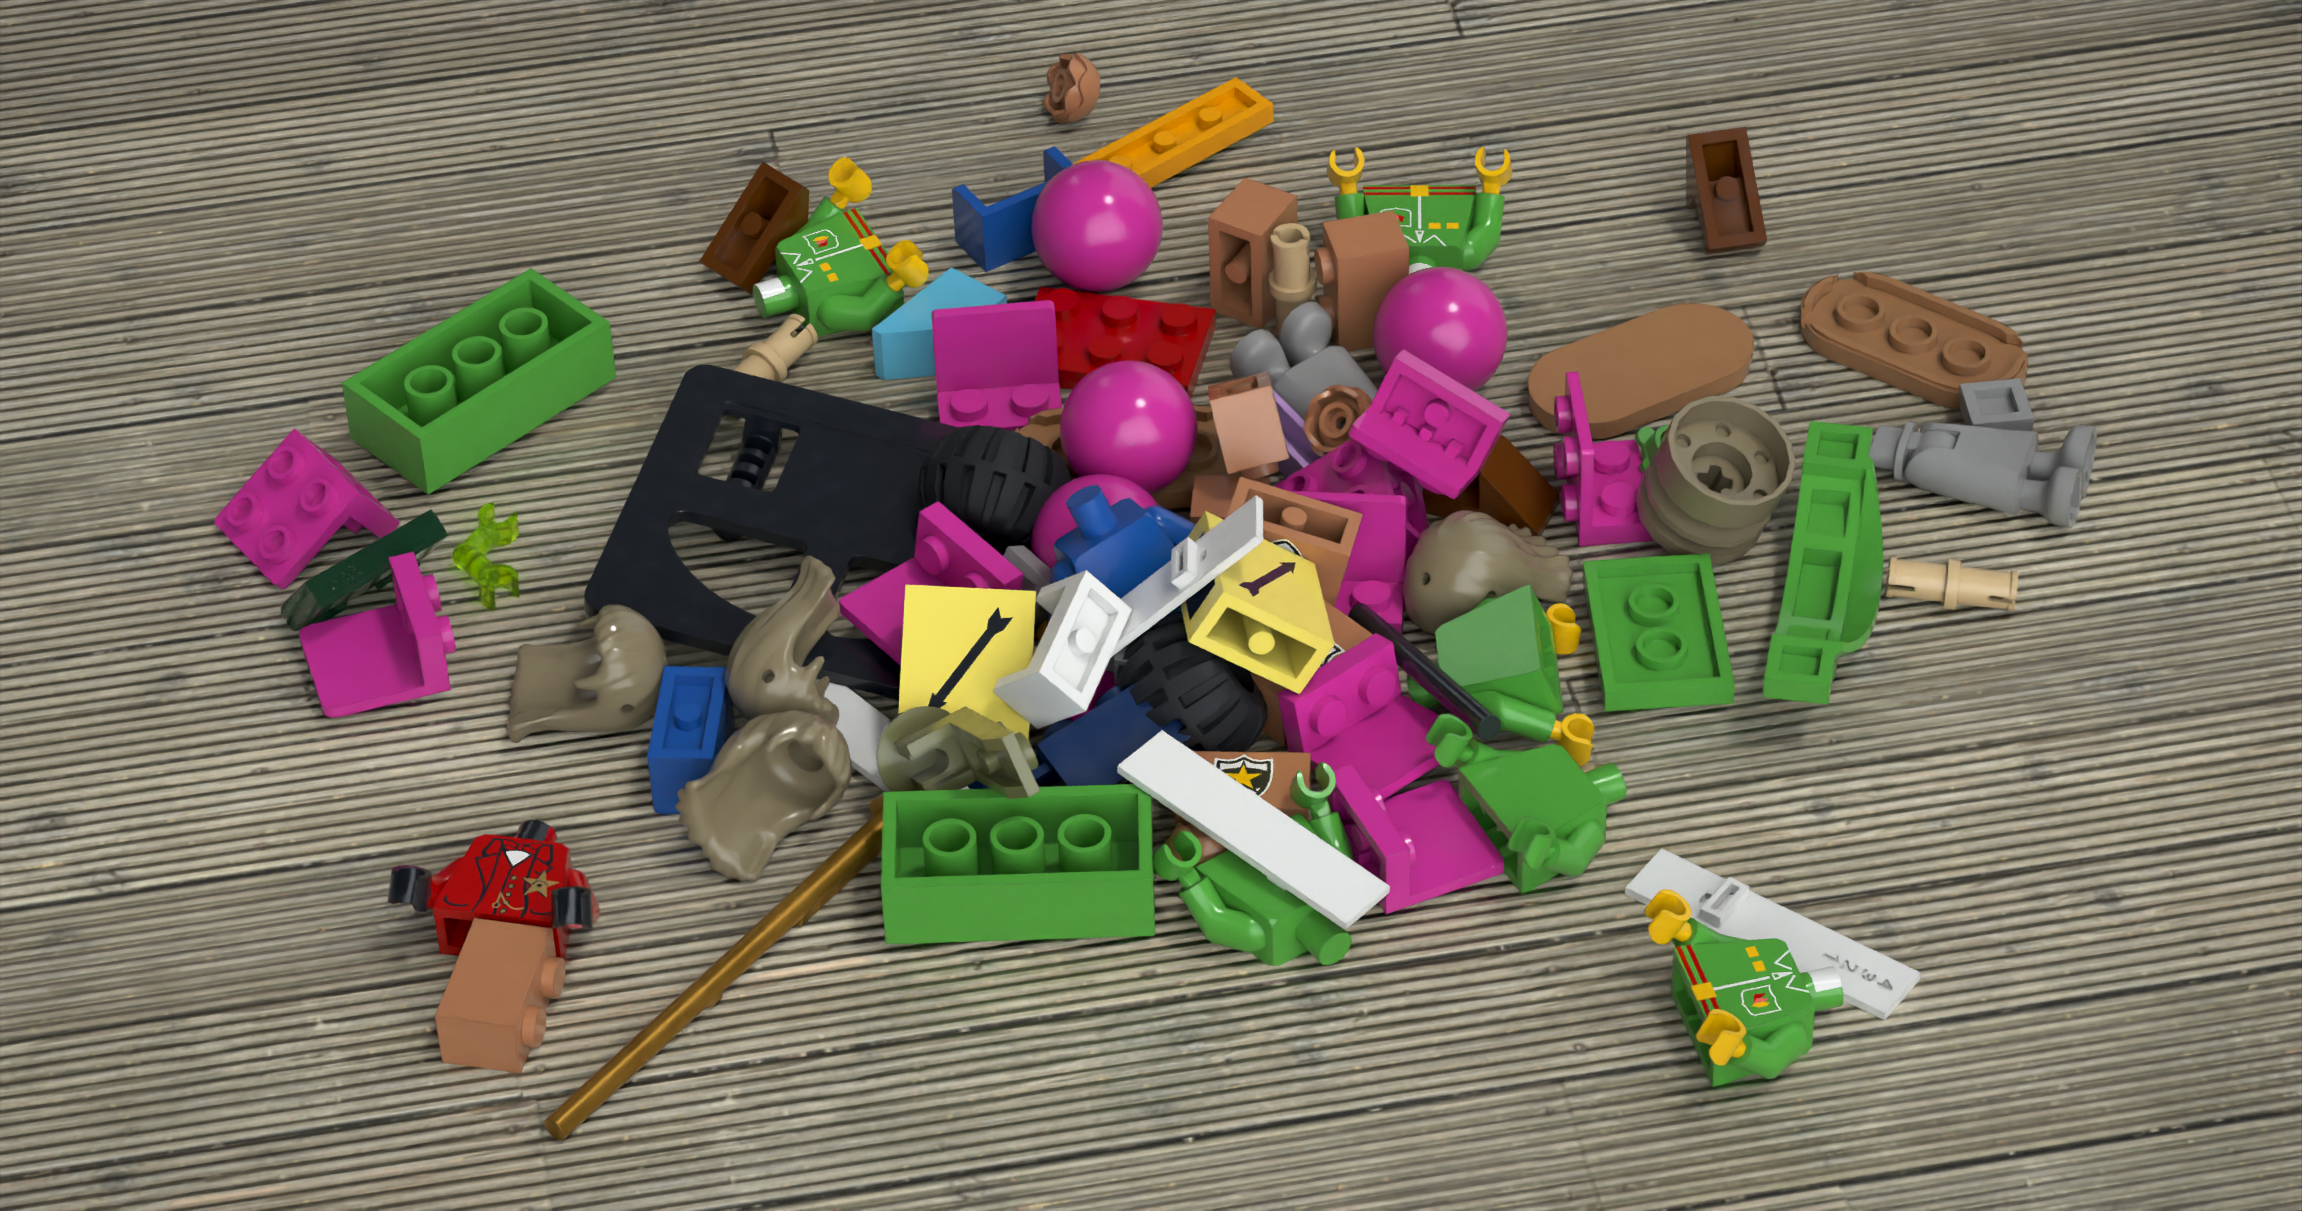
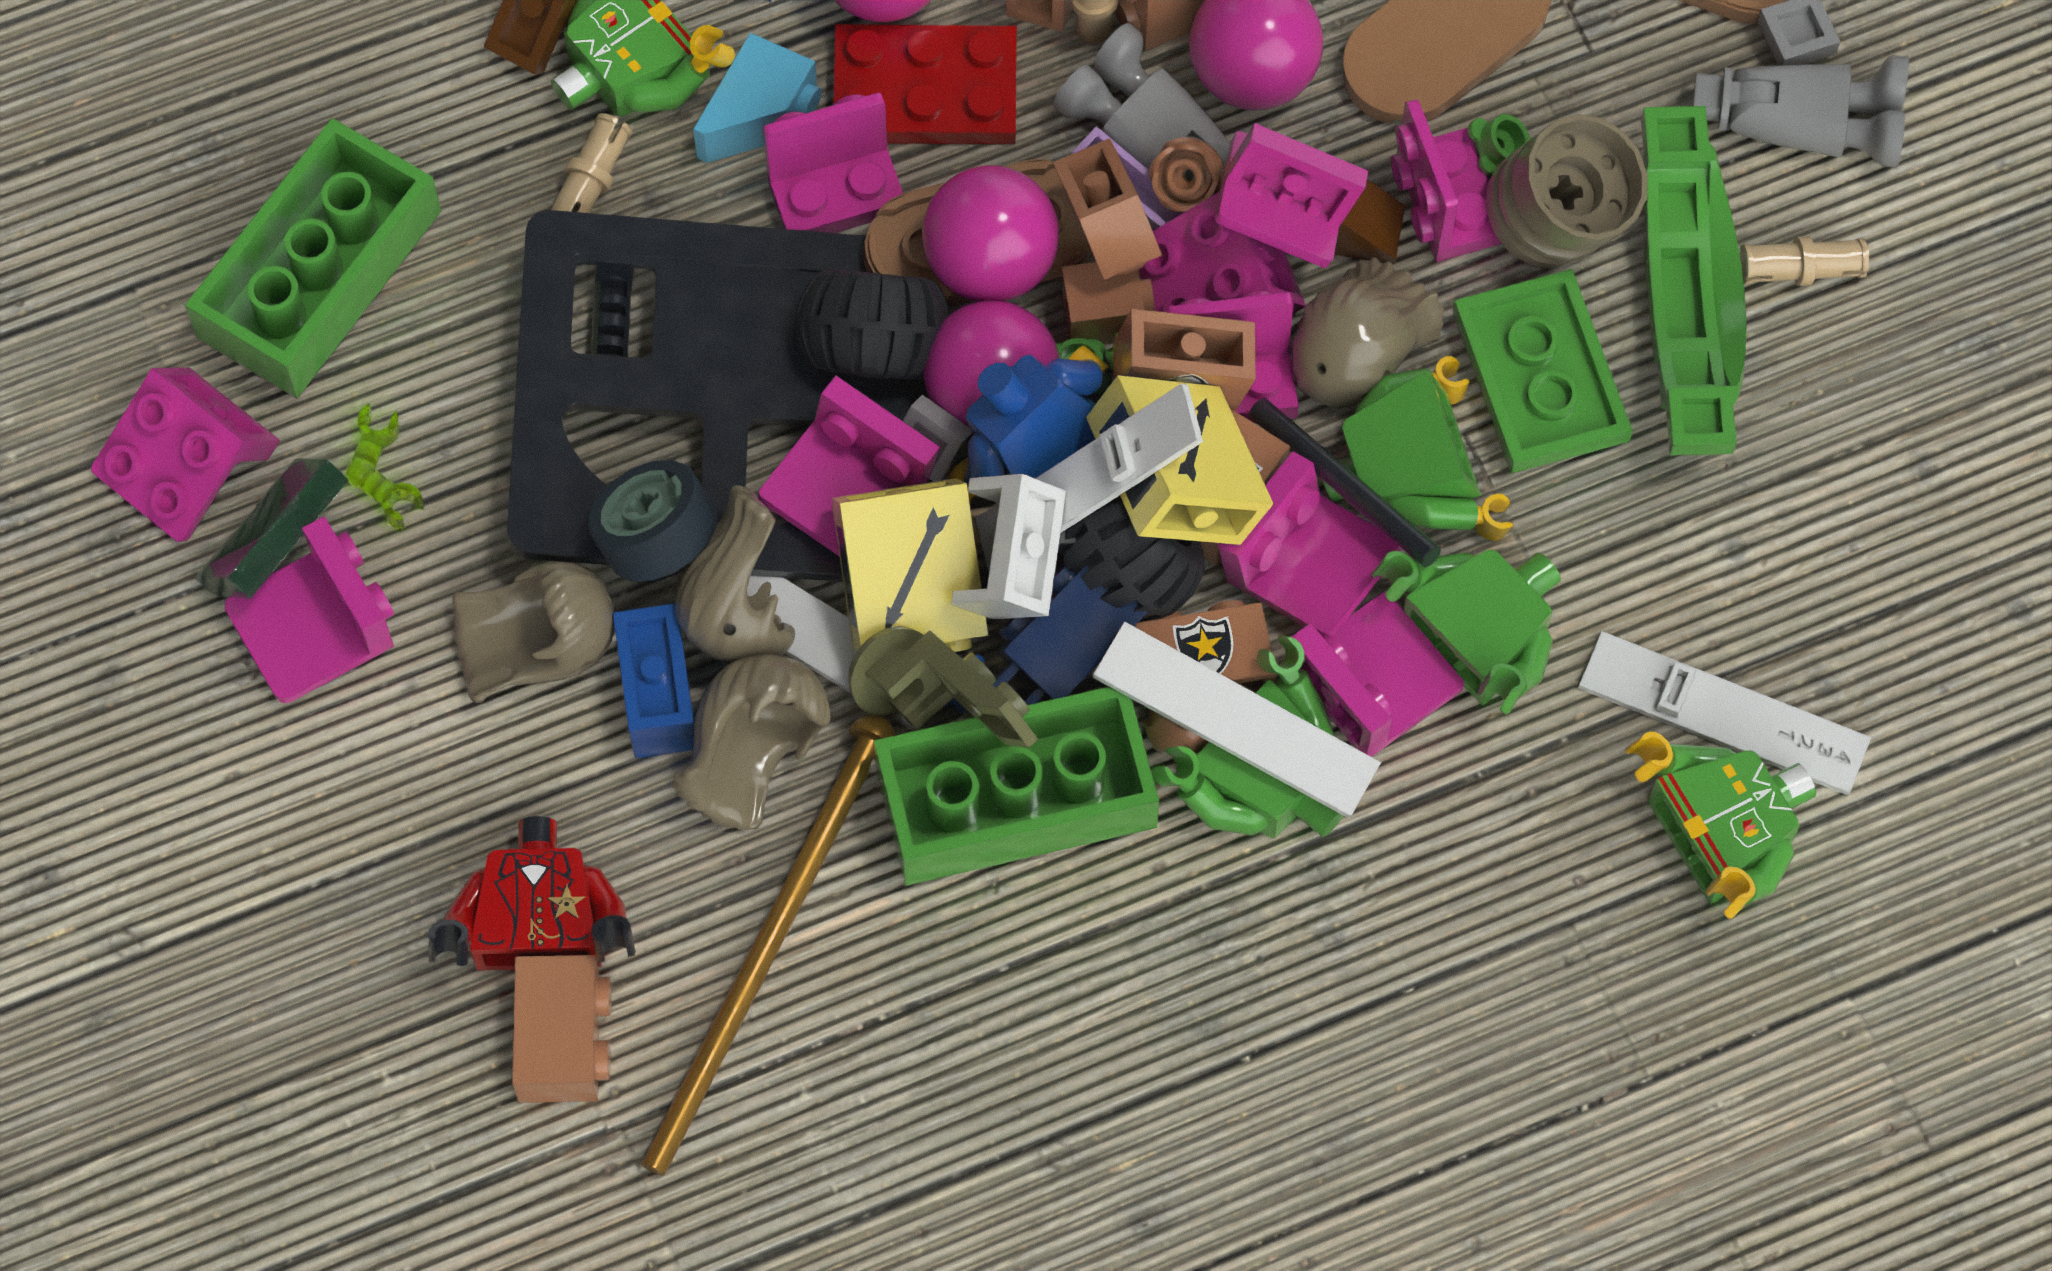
camera: 15 degrees left, 25 degrees up
(723, 586) = (652, 520): none -> black wheel

